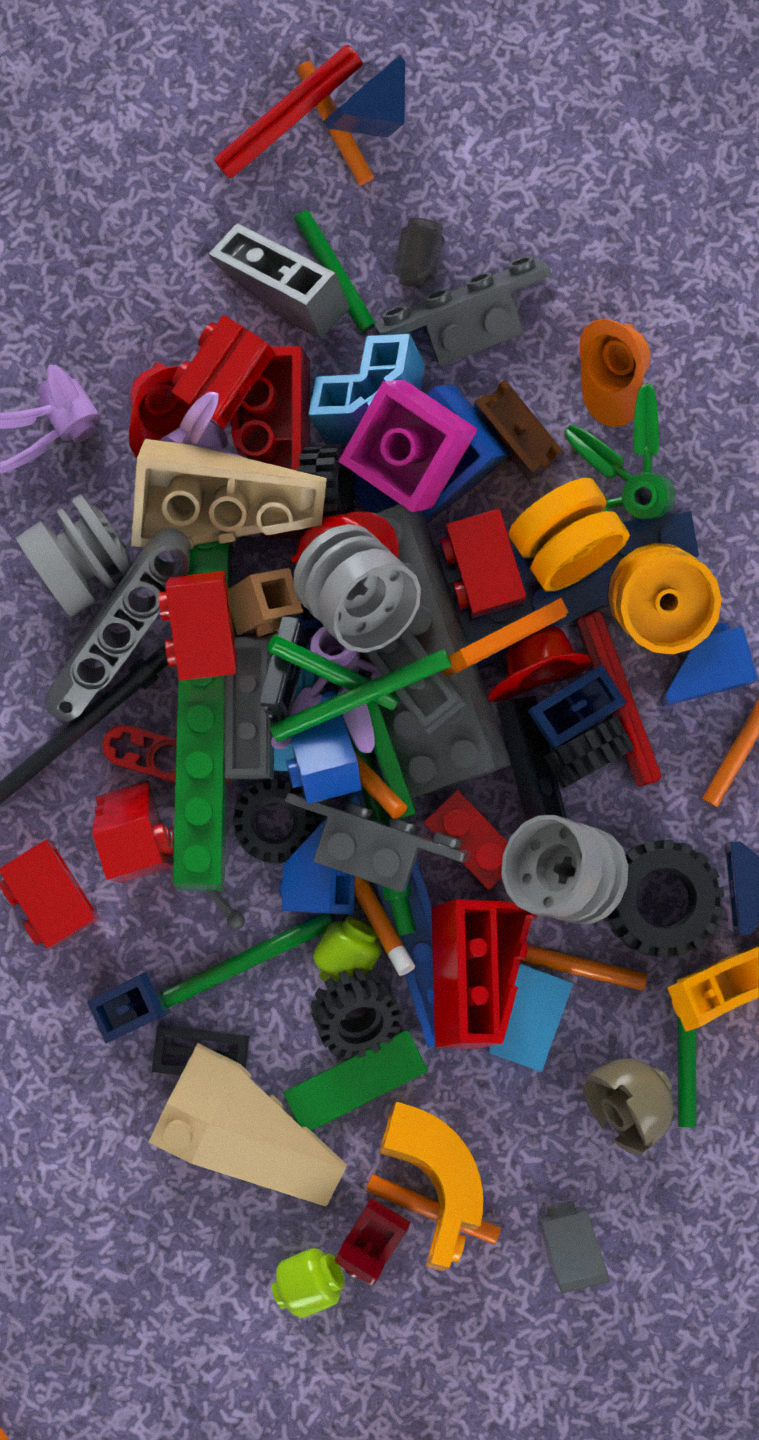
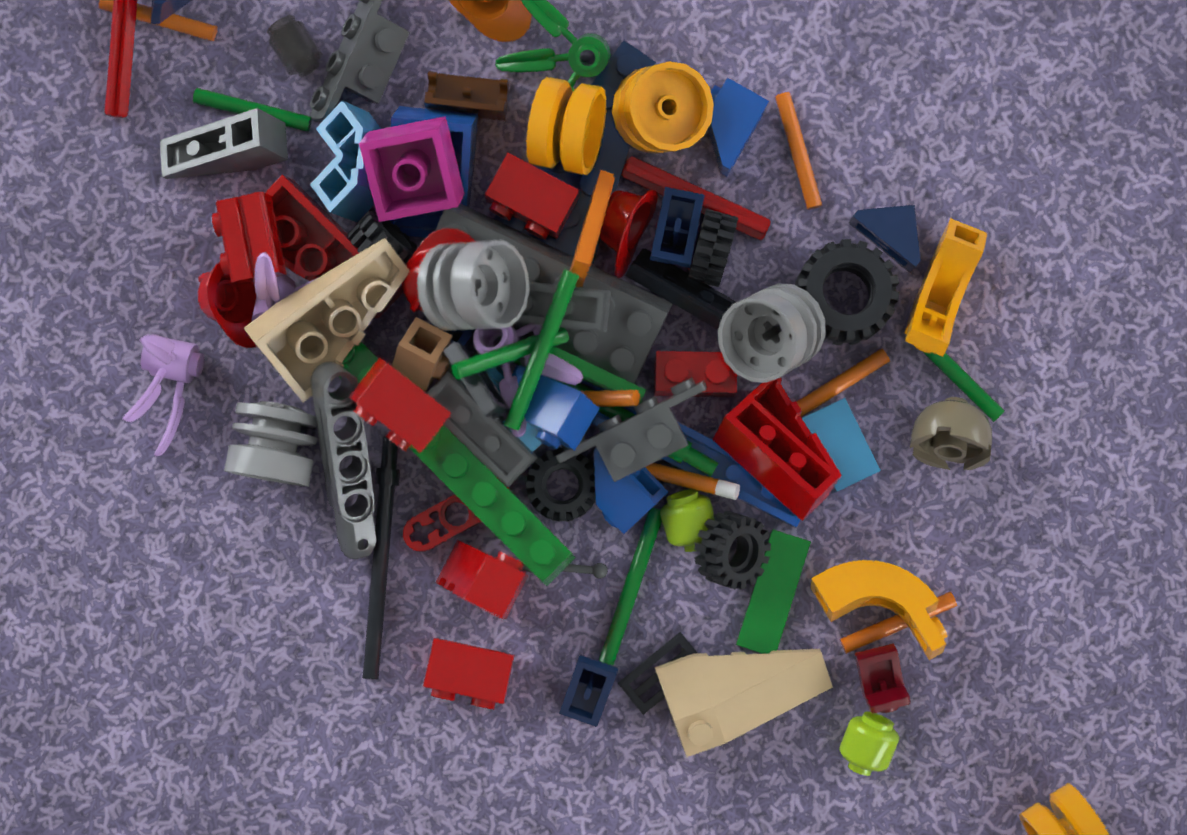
camera: 50 degrees left, 0 degrees up
(572, 1247) = (1006, 556): dark grey slope -> none

